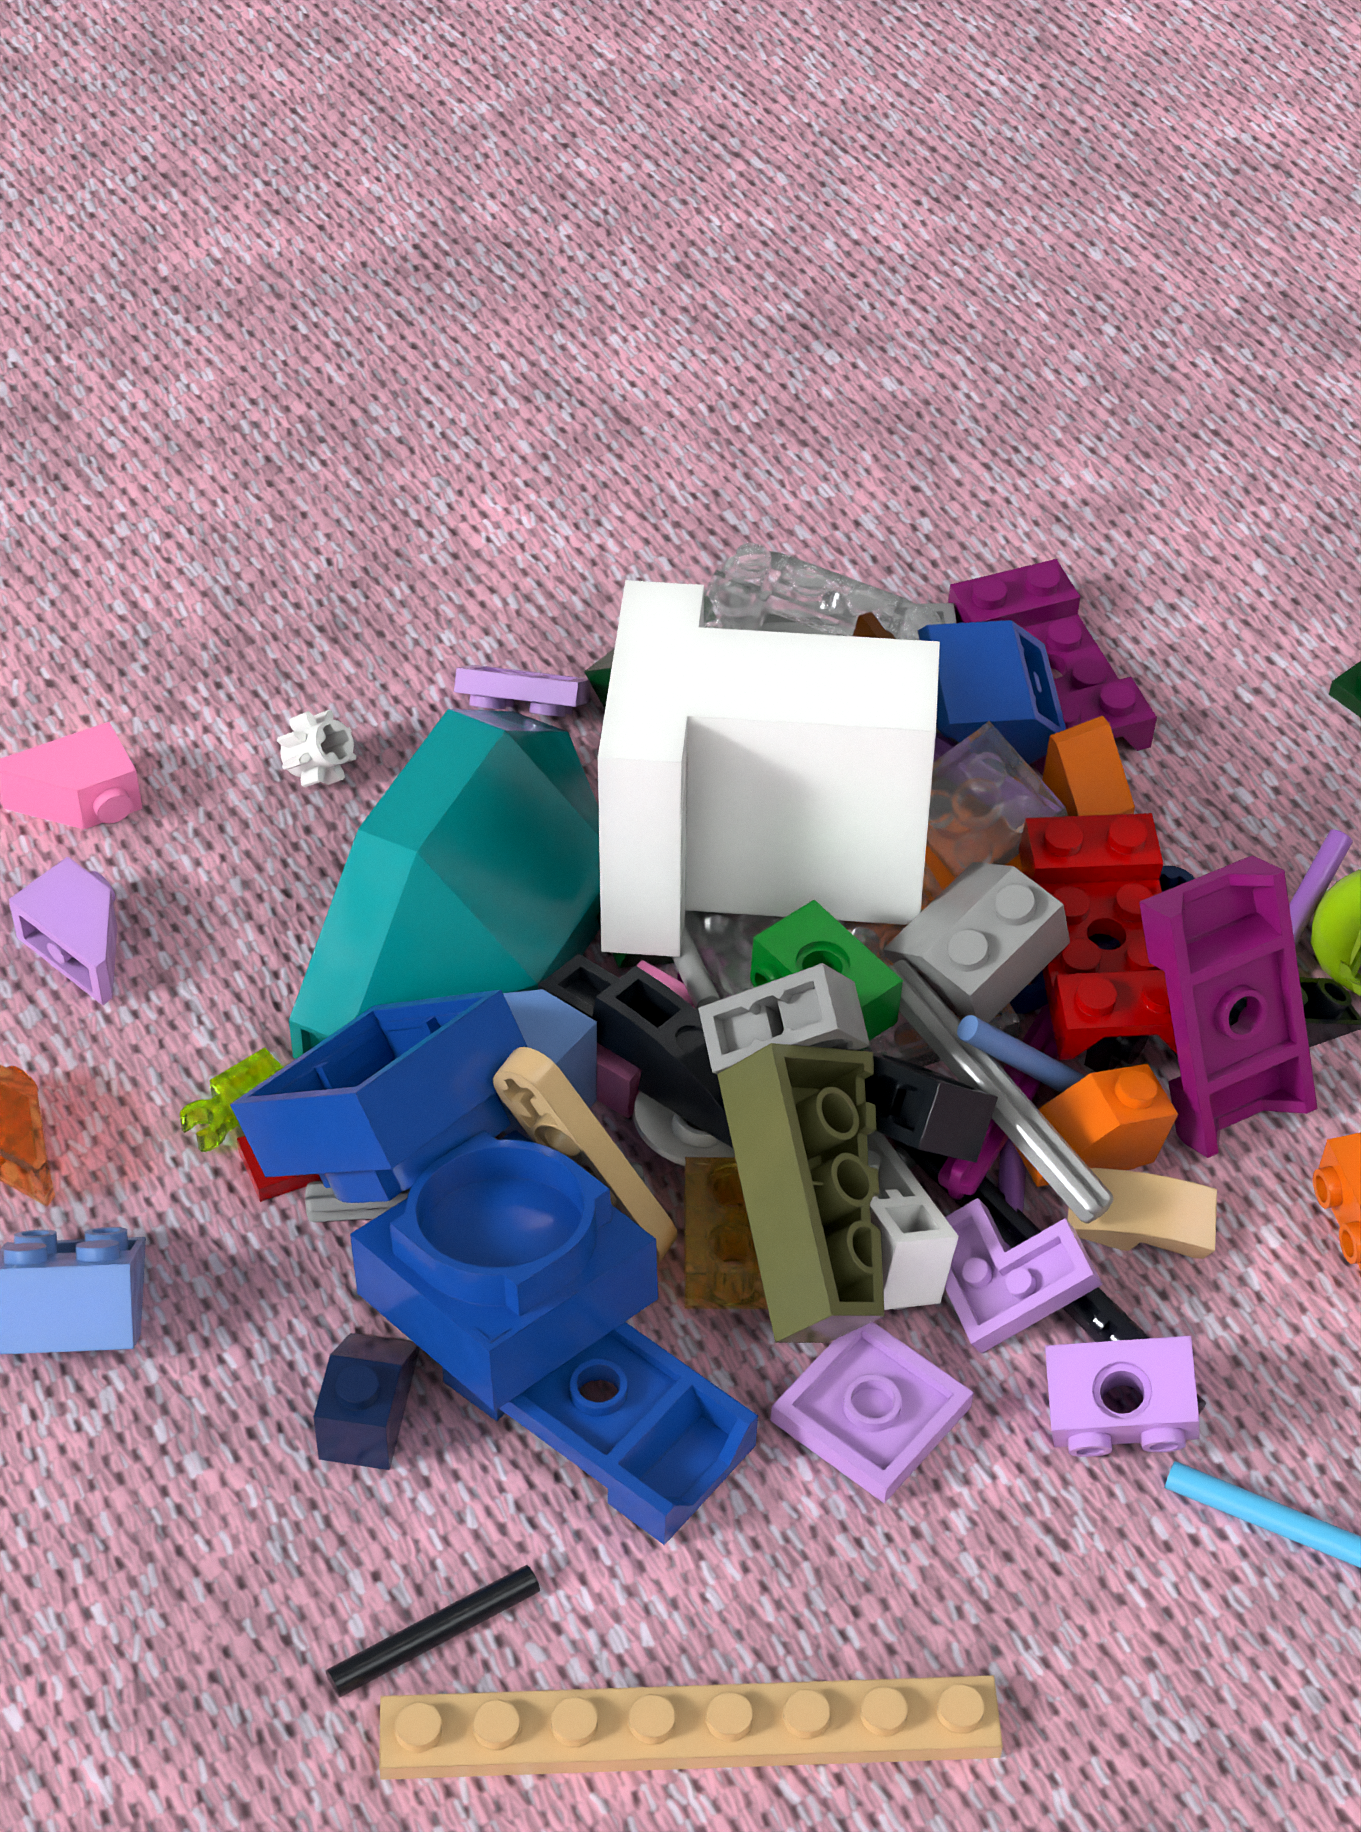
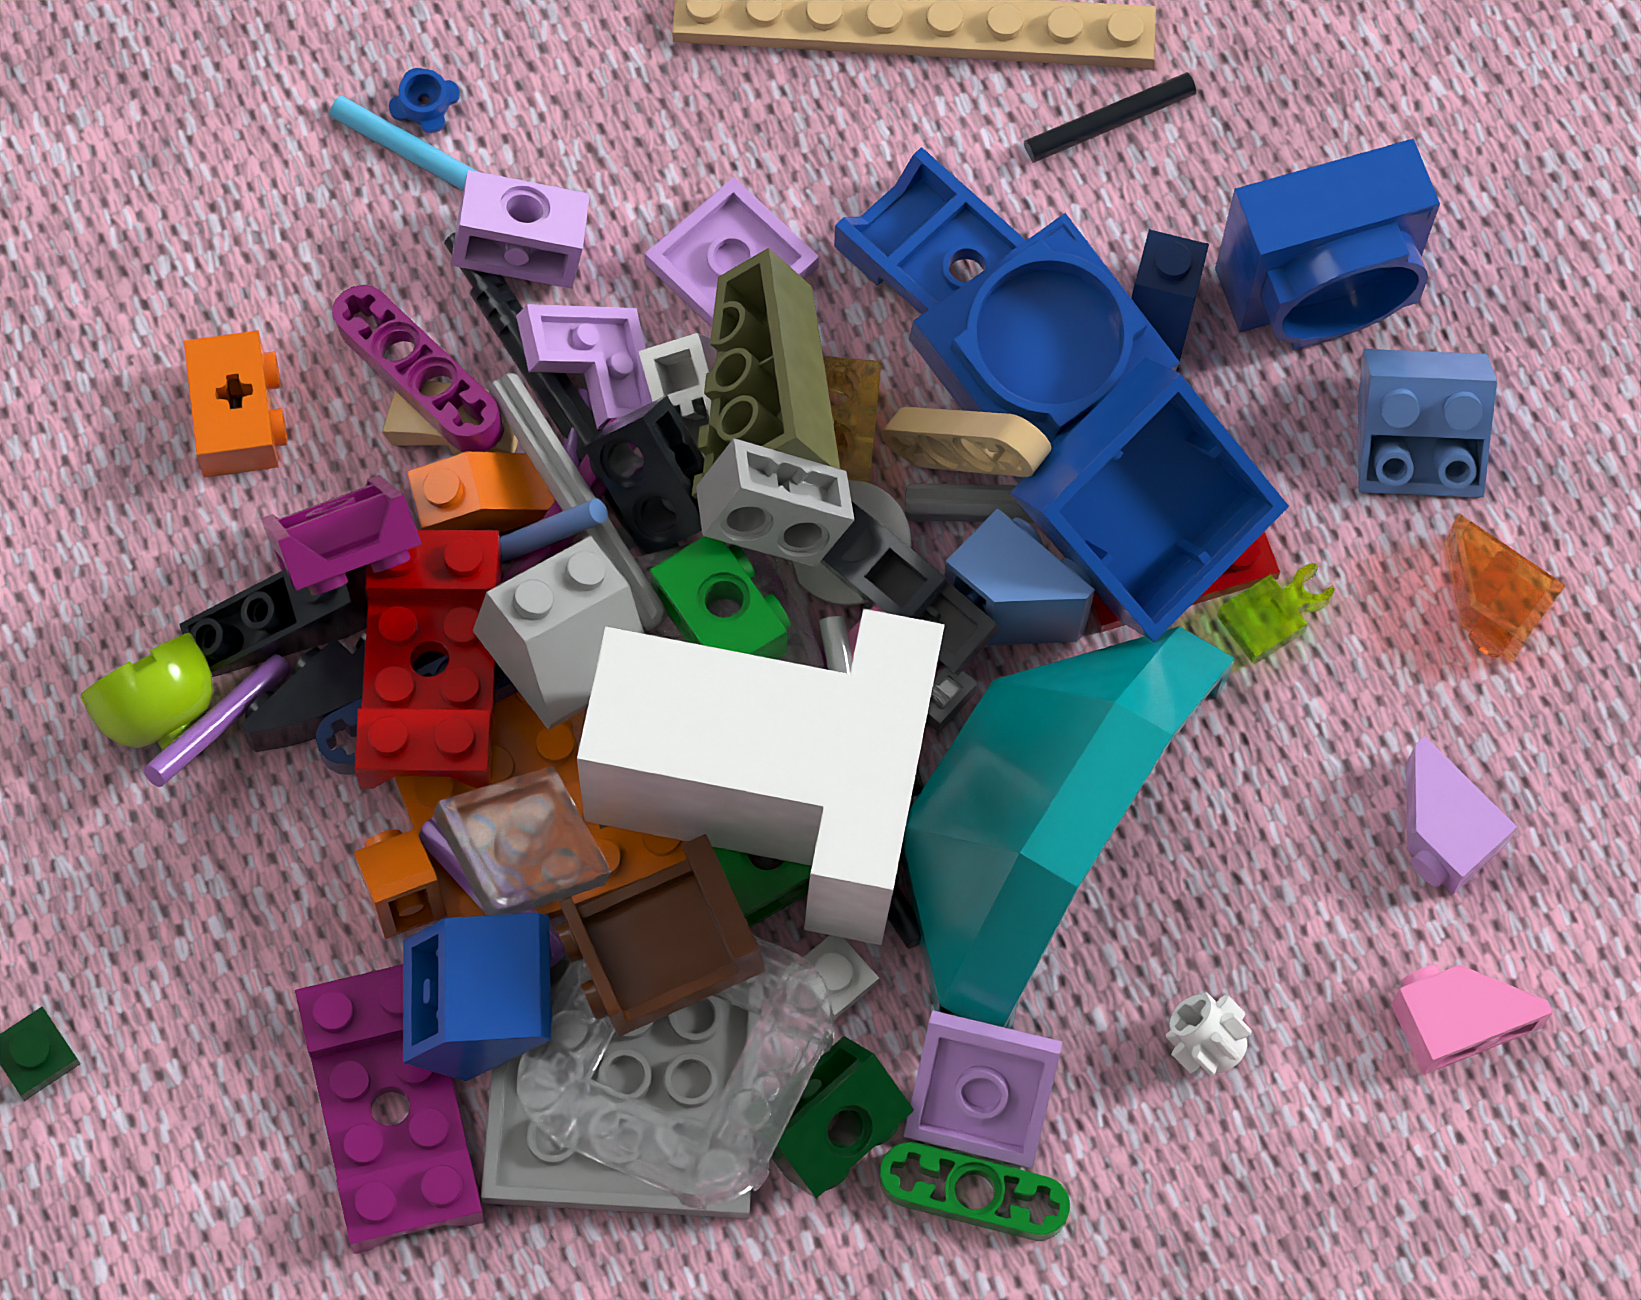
camera: 175 degrees left, 20 degrees up
(171, 1401) = (1329, 245): none -> blue container
(511, 631) = (921, 1195): none -> green beam
(1205, 1231) = (421, 365): none -> magenta beam
(1278, 1552) = (424, 83): none -> blue plate

